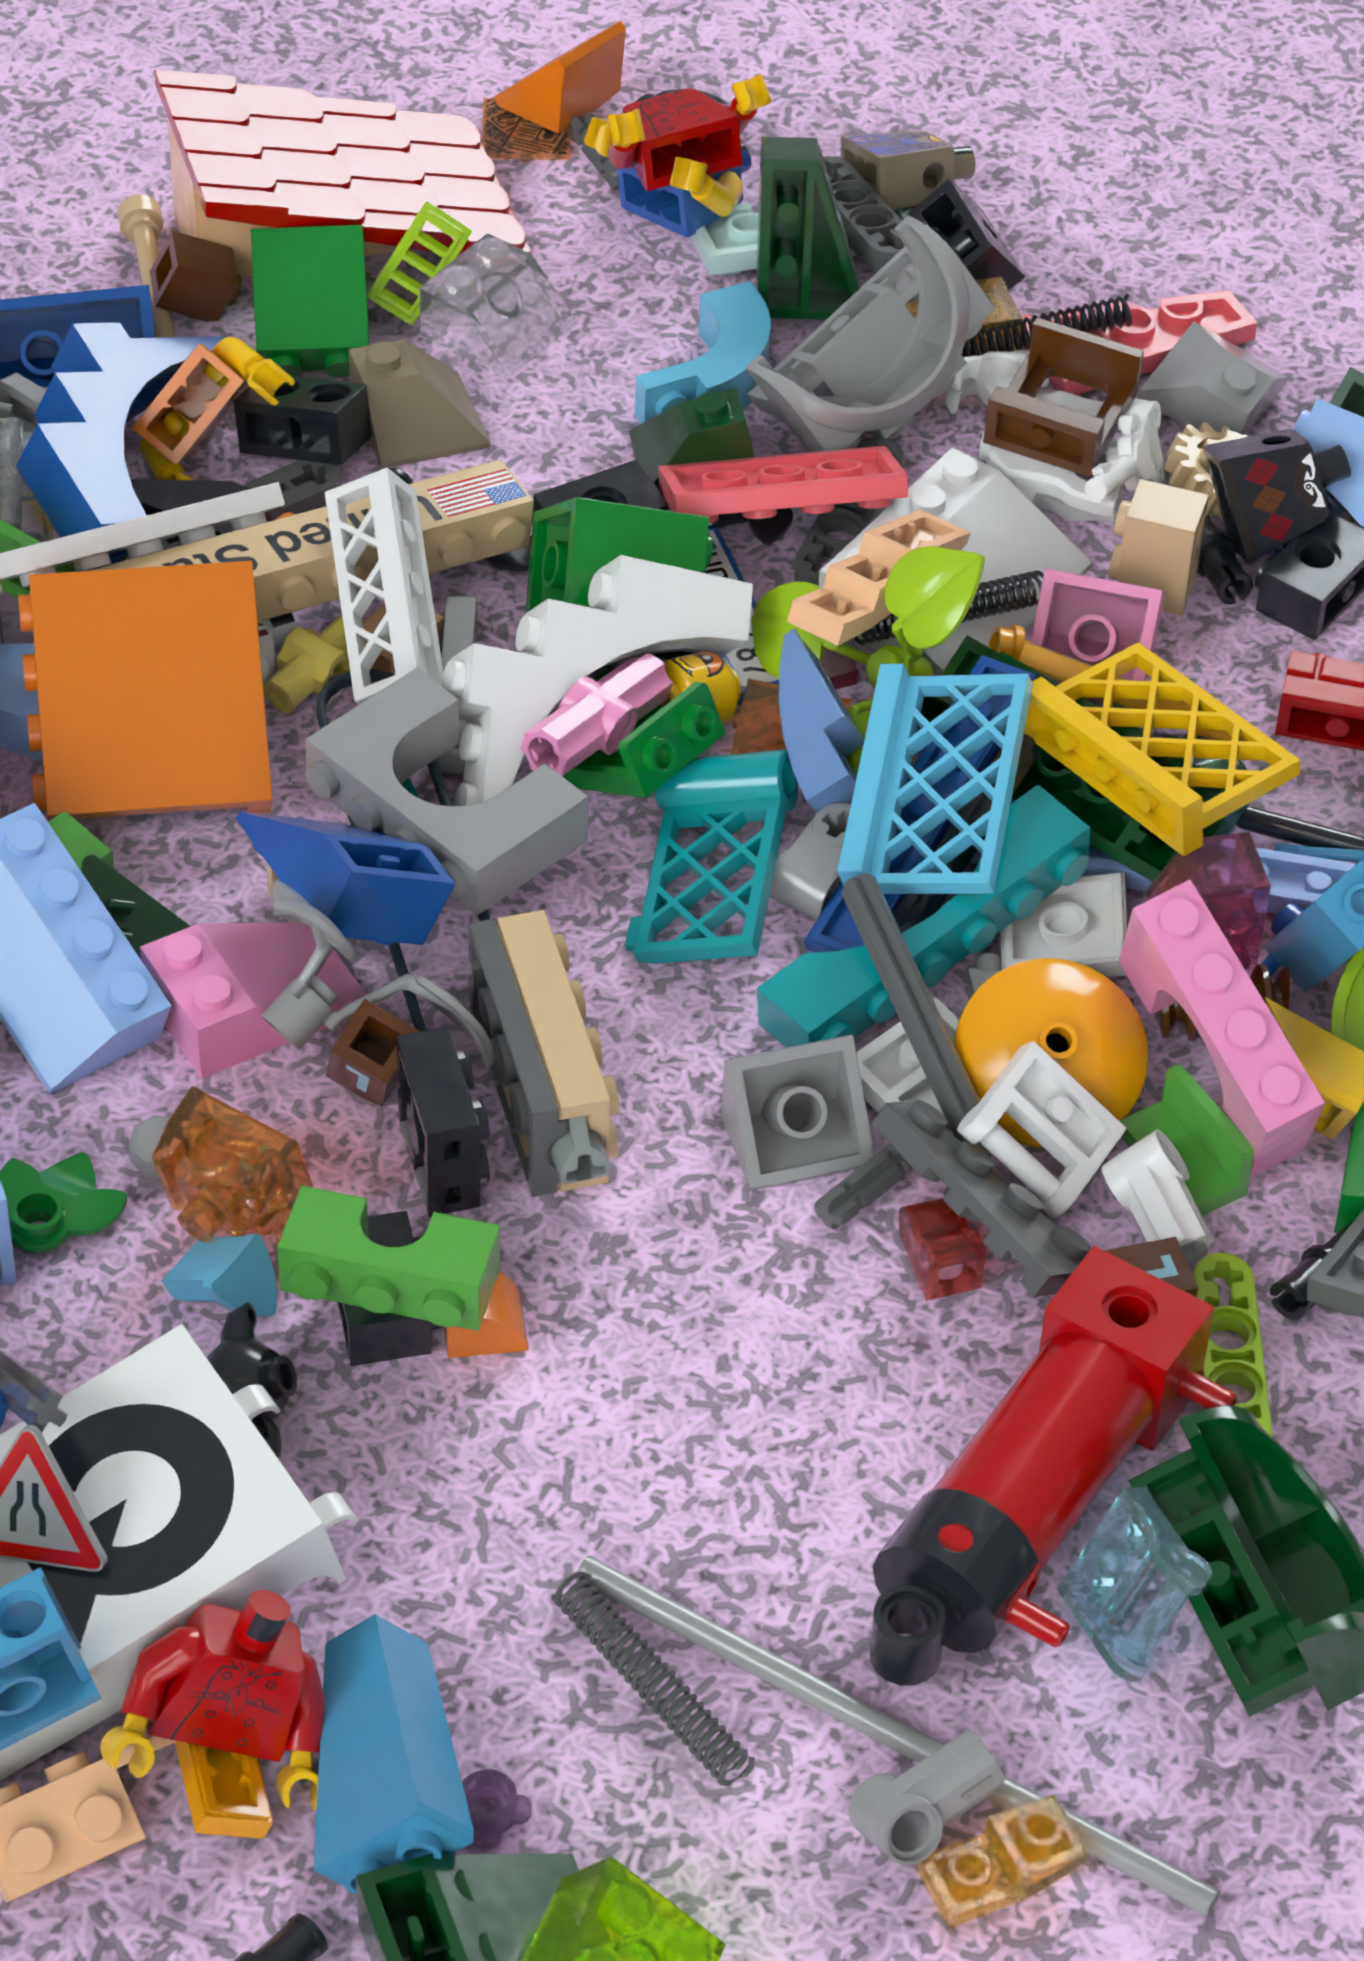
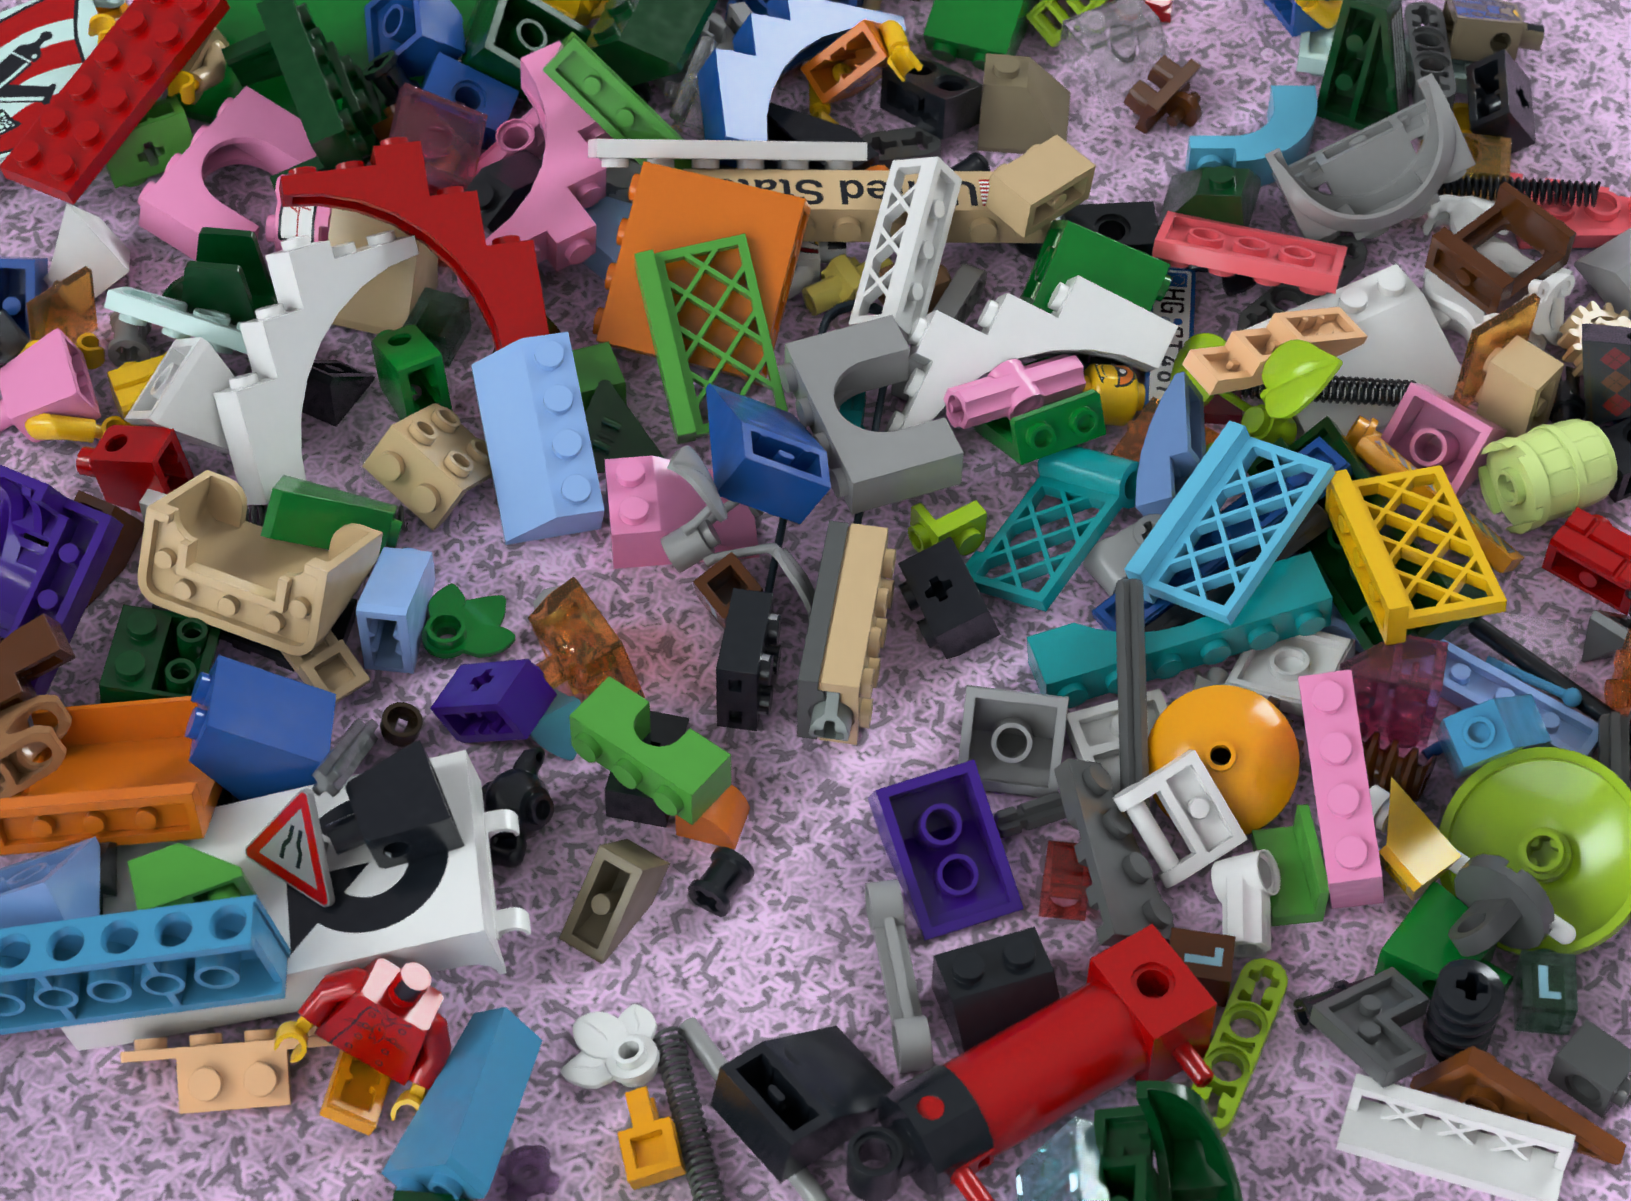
camera: 25 degrees right, 5 degrees up
(55, 1342) = (390, 719): none -> dark brown hinge
(144, 1420) = (397, 811): none -> black torso
(146, 781) = (667, 333): none -> bright green fence
(154, 1272) = (494, 701): none -> dark purple brick
(419, 1454) = (613, 898): none -> dark tan slope
(505, 1626) = (607, 1045): none -> white plate
(509, 472) = (1040, 185): none -> tan brick
(538, 1388) = (721, 881): none -> black bush
(582, 344) = (1170, 99): none -> reddish brown hips
(595, 907) = (964, 526): none -> lime bracket
(619, 1718) = (652, 1145): none -> light orange plate
(637, 978) = (948, 599): none -> black brick
(774, 1598) = (798, 1097): none -> black slope
(785, 1258) = (946, 849): none -> dark purple slope
(859, 1481) = (908, 1025): none -> light grey piece
(928, 1394) = (992, 985): none -> black slope
(1116, 485) = (1485, 338): none -> clear orange piece
(1239, 624) = (1547, 473): none -> yellowish green piece

